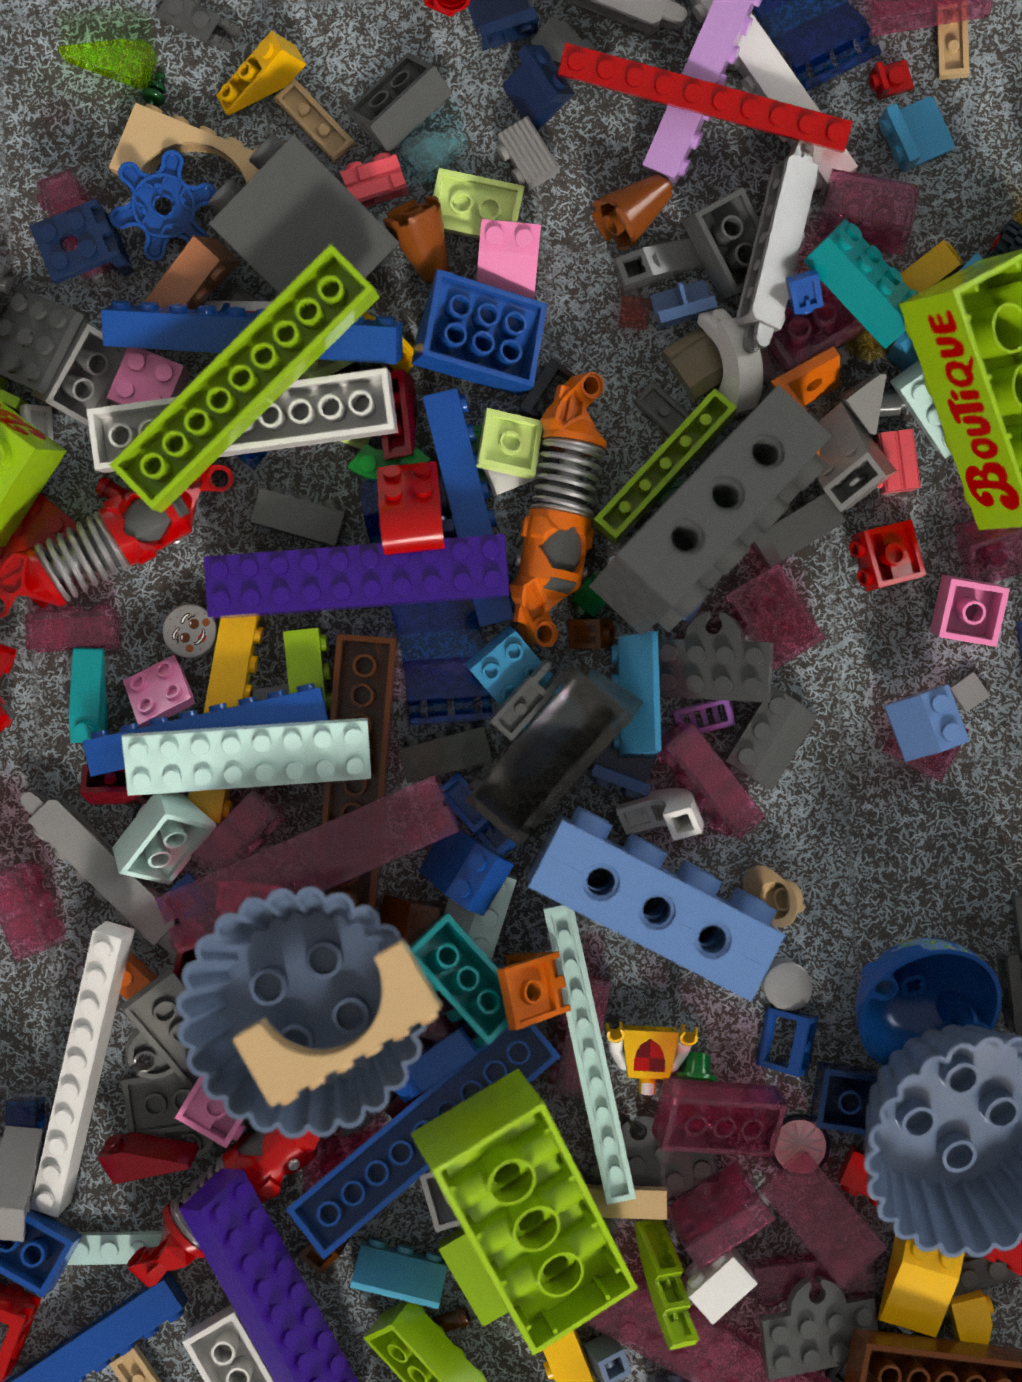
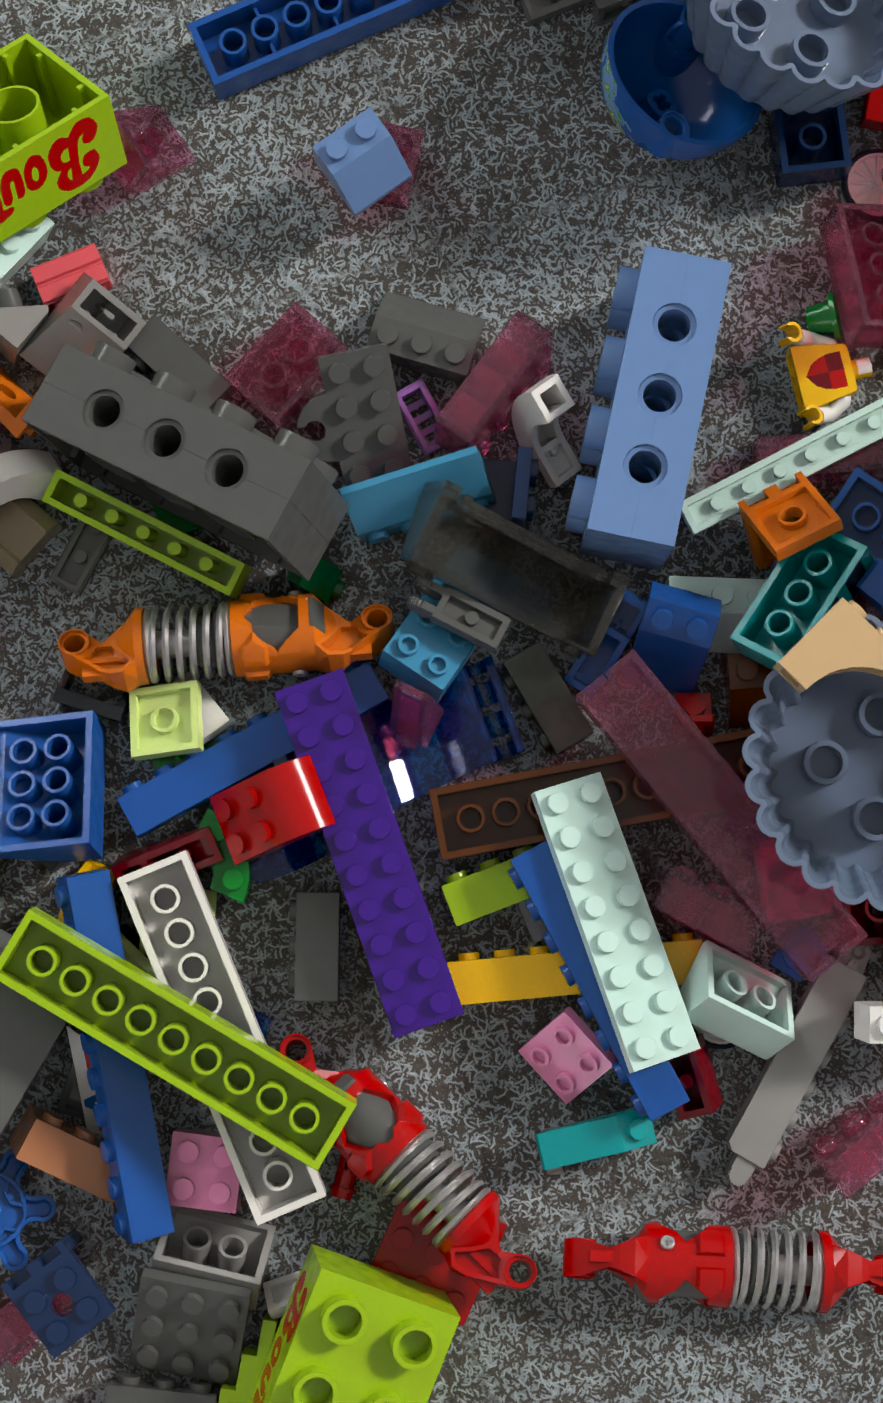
camera: 105 degrees left, 5 degrees down
(63, 631) = (522, 1180): clear pink brick -> none
(190, 631) = (485, 1038): light grey head -> none
(402, 870) = (698, 709): none -> red bracket
(457, 642) = (413, 715): none -> clear pink slope
(591, 633) = (361, 570): reddish brown bracket -> none
(777, 892) = (598, 283): tan piece -> none
(787, 985) = (703, 237): light grey piece -> none
(802, 1042) = (760, 209): blue tile -> none
(887, 555) = (182, 260): red plate -> none
(969, 610) = (220, 152): bright pink brick -> none
(969, 692) = (311, 129): light grey tile -> none

